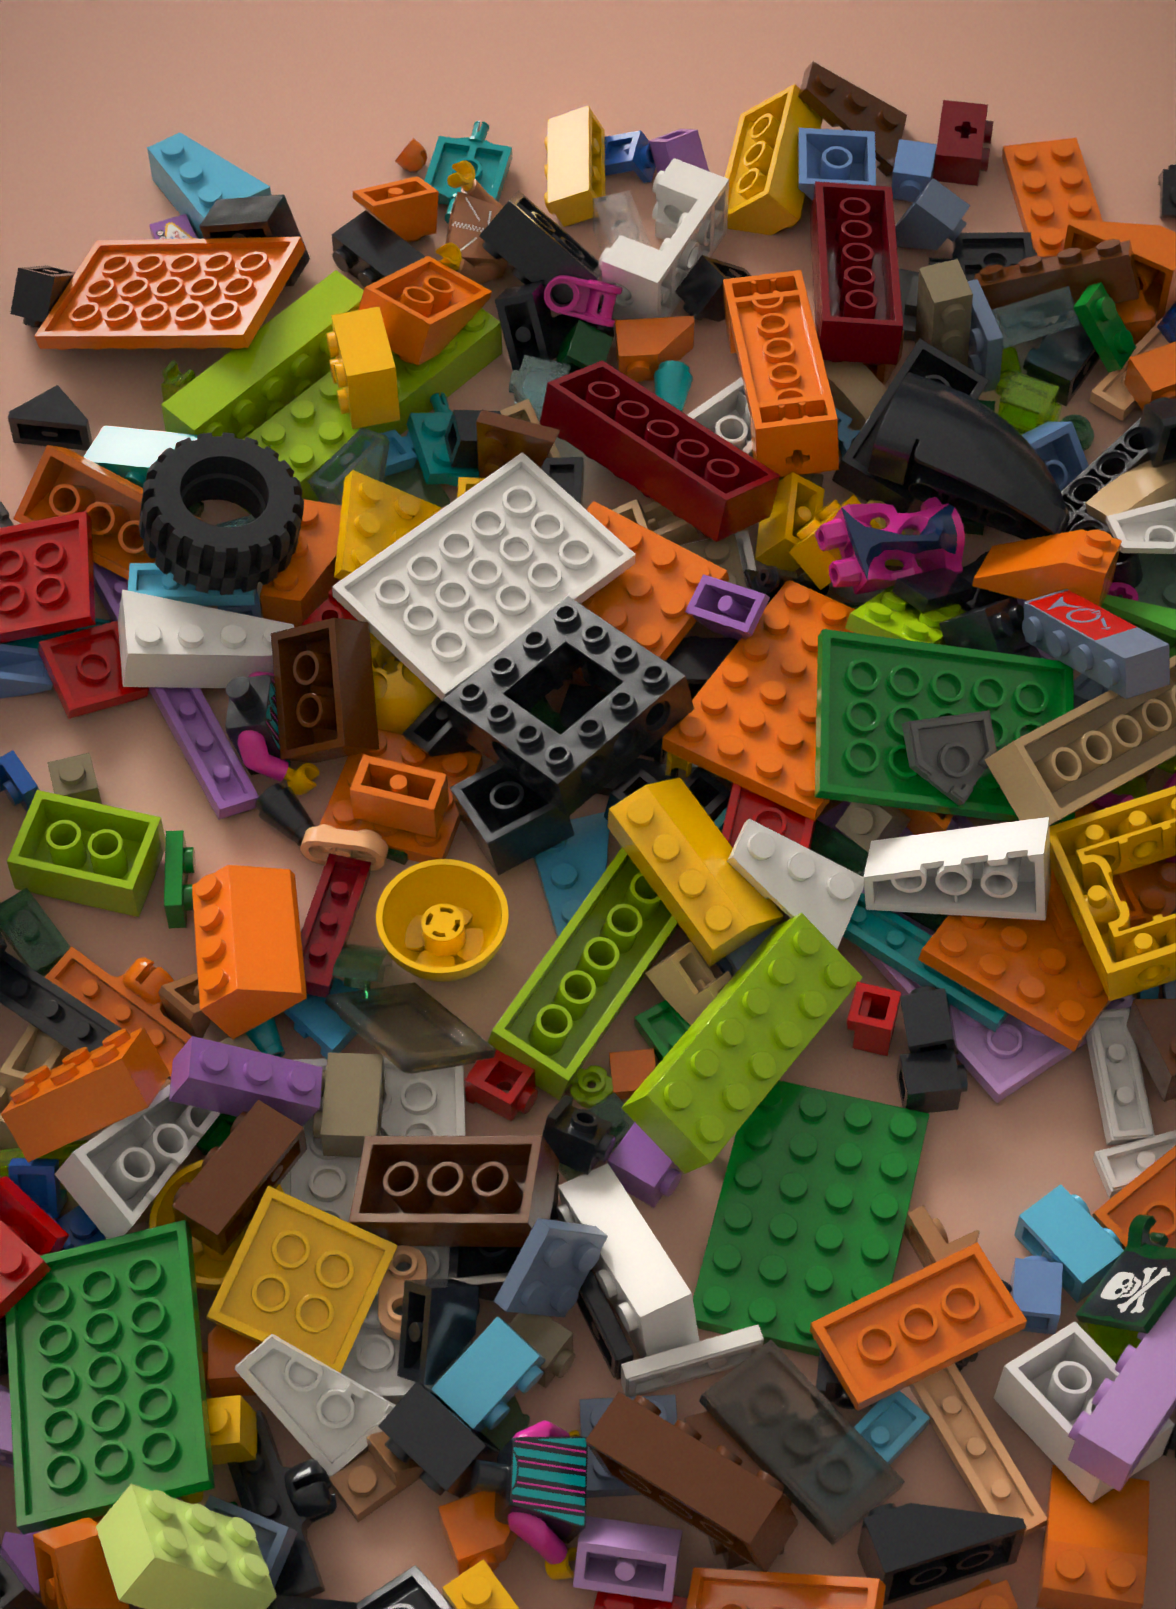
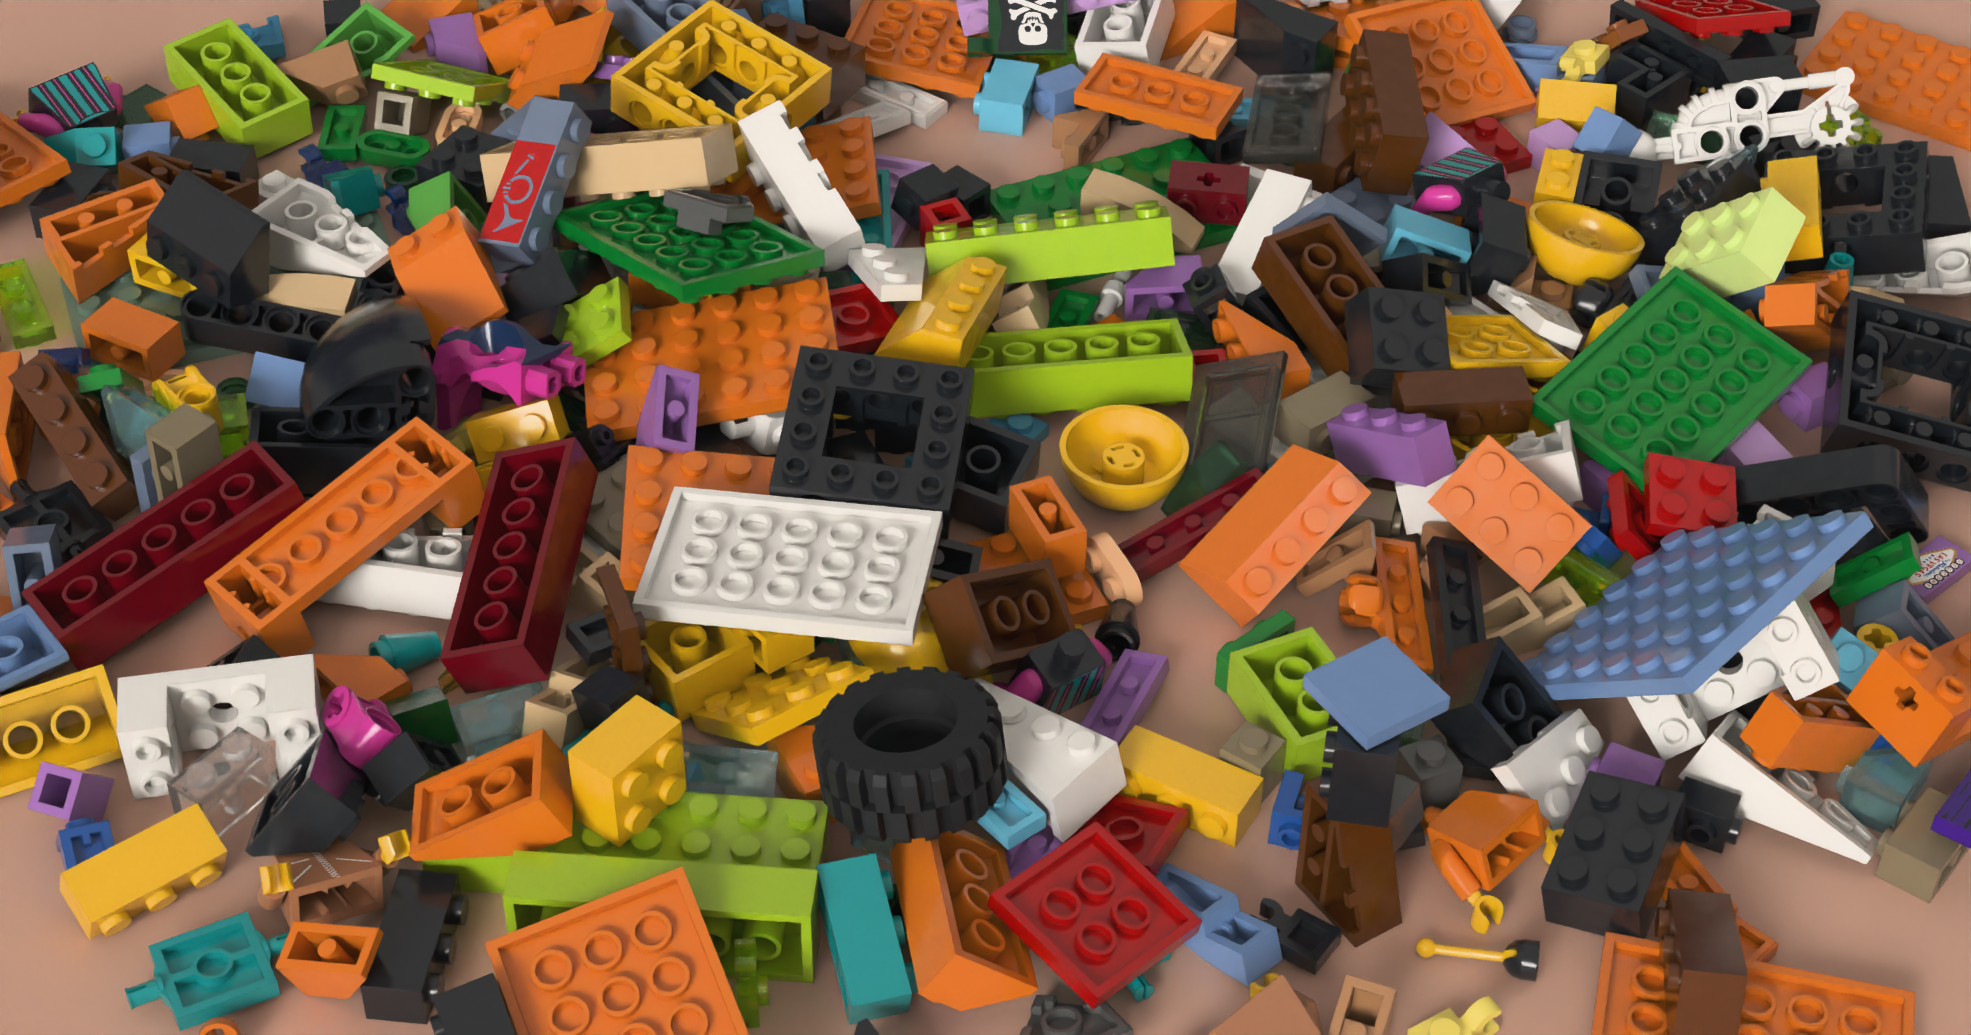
camera: 130 degrees left, 15 degrees down
(112, 733) = (1217, 794): none -> yellow brick
(341, 1164) = (1395, 334): none -> black brick
(383, 1492) = (1581, 242): none -> yellow piece
(449, 1108) = (1248, 337): none -> orange slope
(728, 1283) = (1209, 190): none -> dark red brick
(751, 1178) = (1111, 189): none -> tan slope
(1038, 360) = (189, 389): none -> yellow piece

